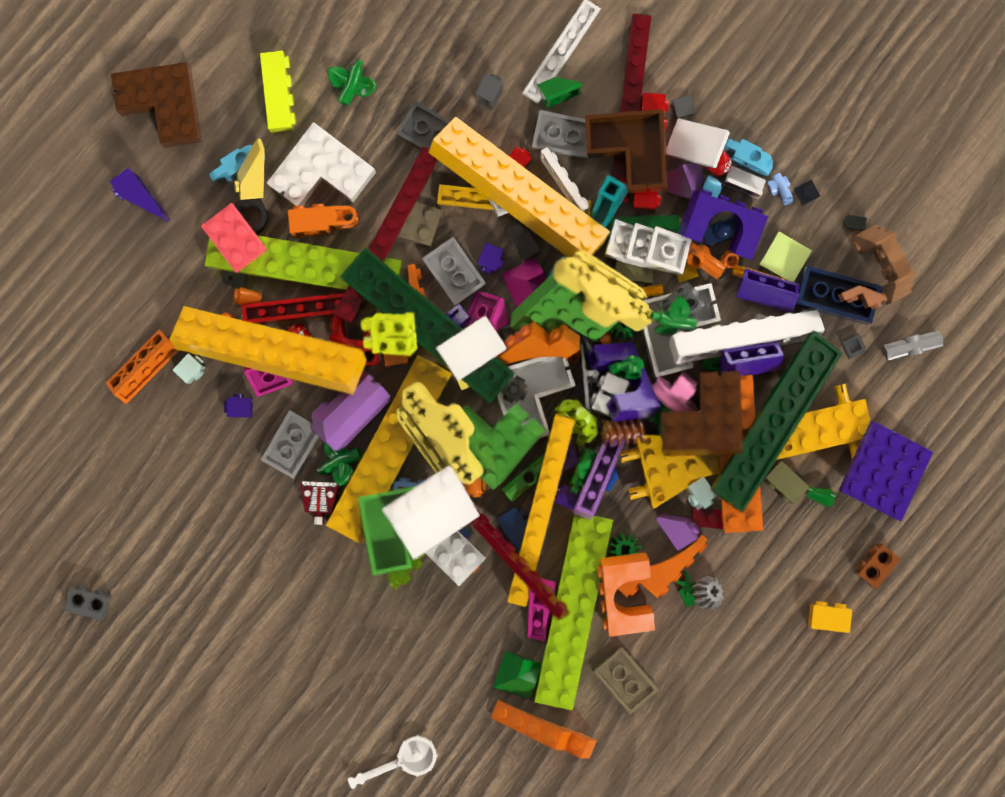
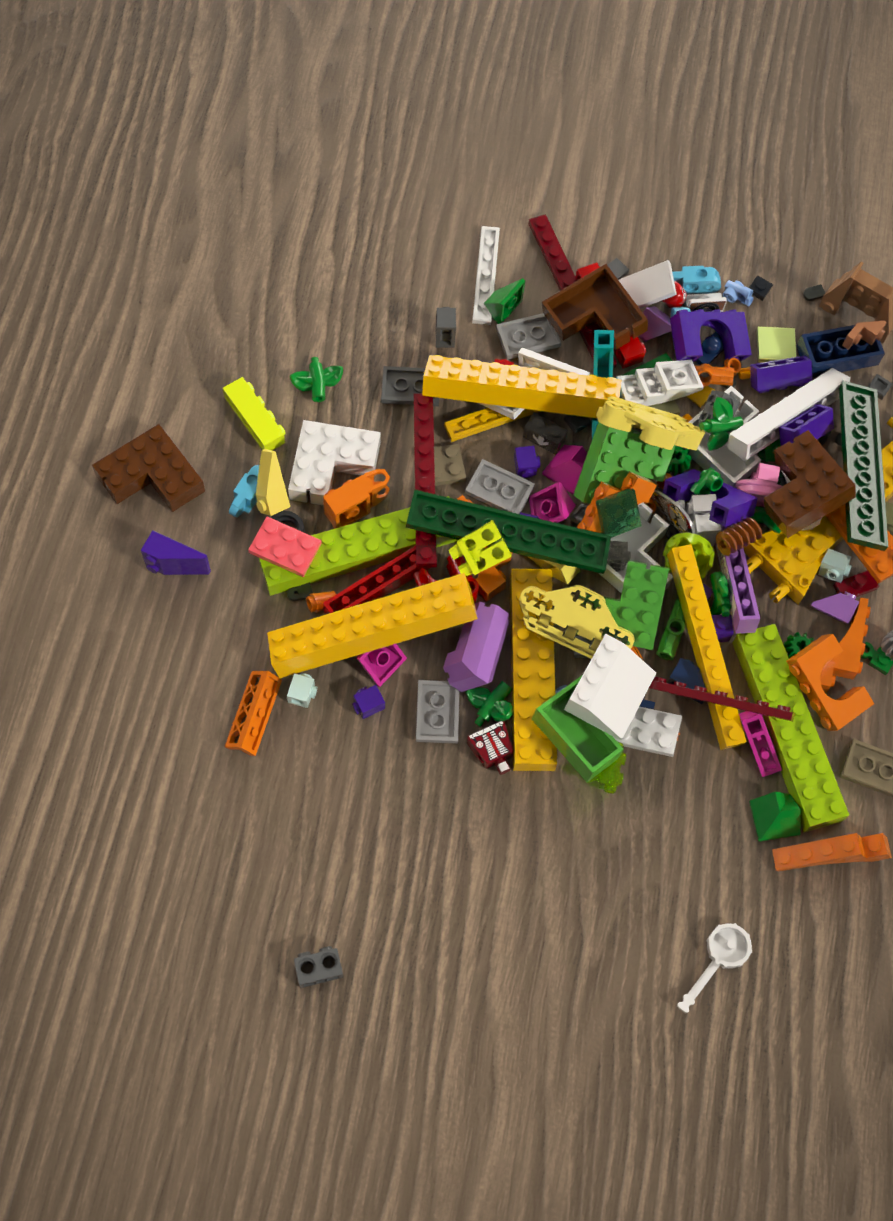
camera: 30 degrees left, 20 degrees down
(471, 348) = (560, 530): white tile -> none
(532, 357) = (618, 513): none -> clear green plate

